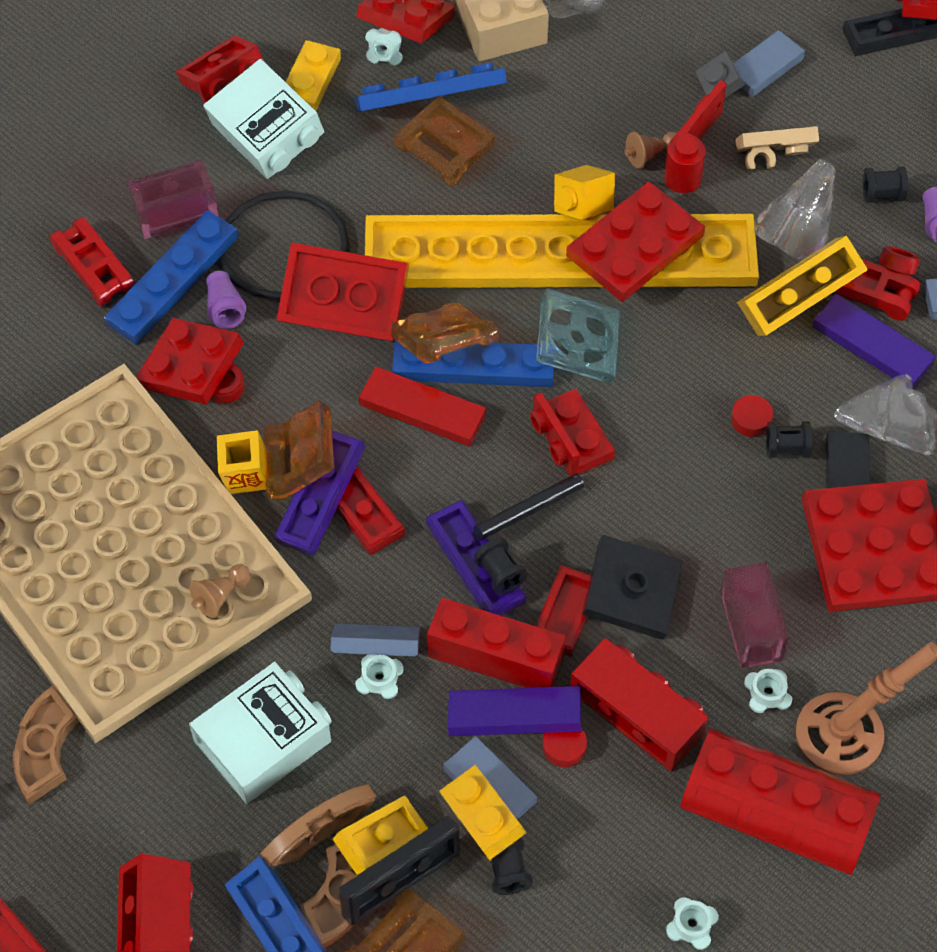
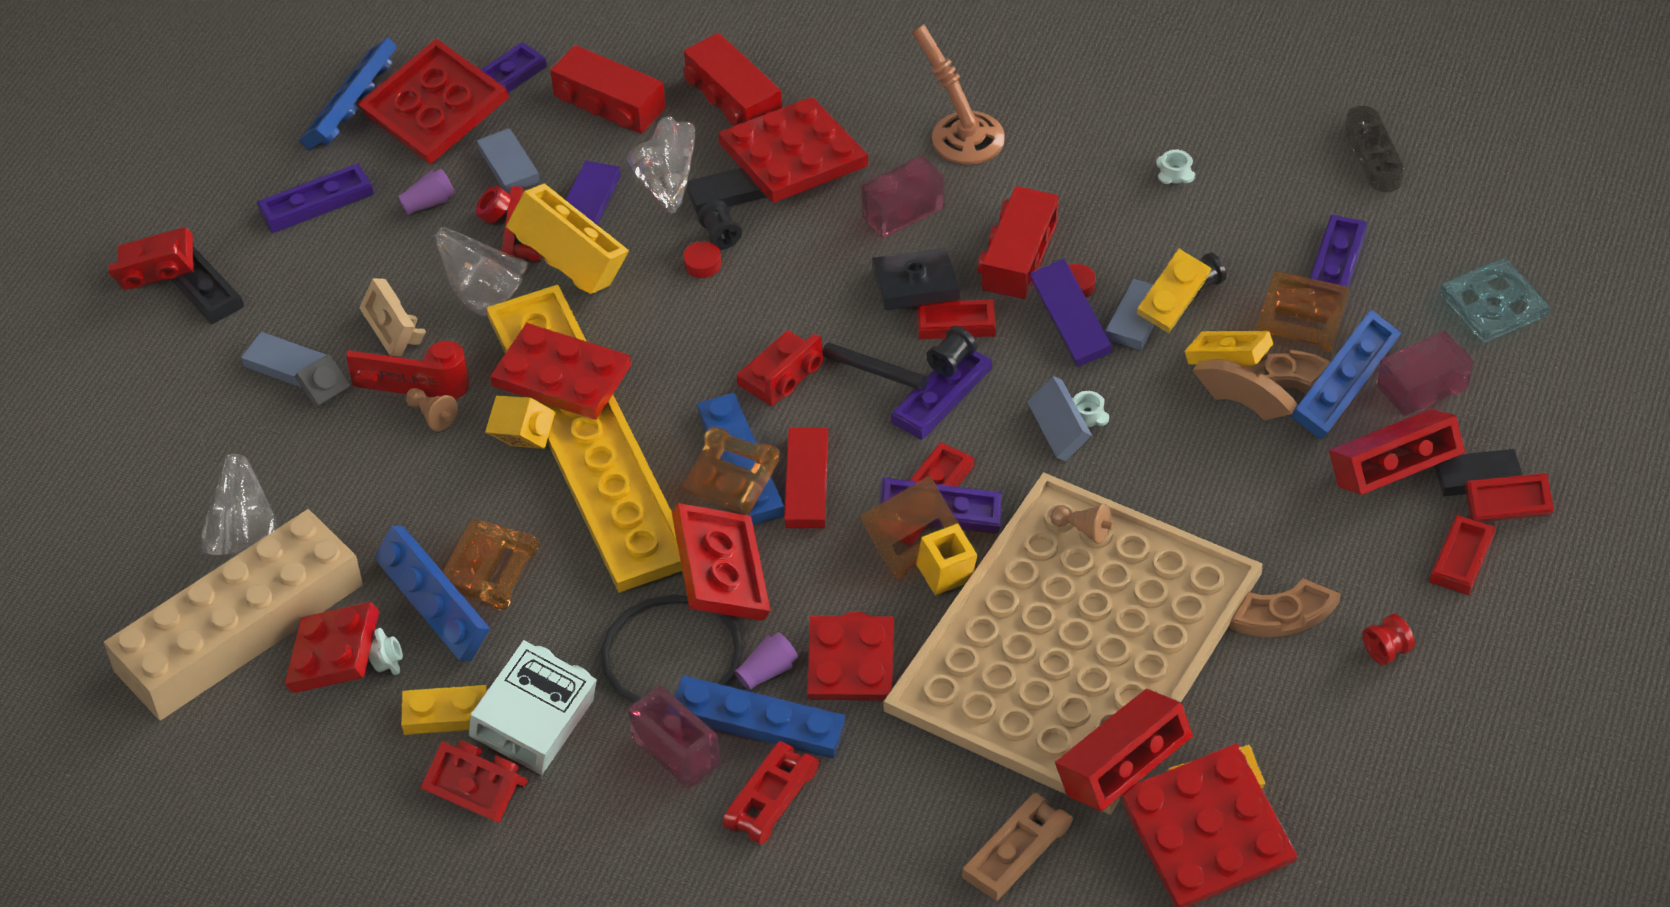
camera: 110 degrees left, 10 degrees down
(262, 731) = (1186, 459): light aqua brick -> none
(399, 870) = (1223, 316): black tile -> none
(495, 645) = (1022, 337): red brick -> none
(579, 310) = (699, 393): clear light blue piece -> none
(768, 678) = (960, 178): light aqua plate -> none
(780, 801) = (1053, 134): red container -> none
(885, 184) = (405, 230): black bush -> none

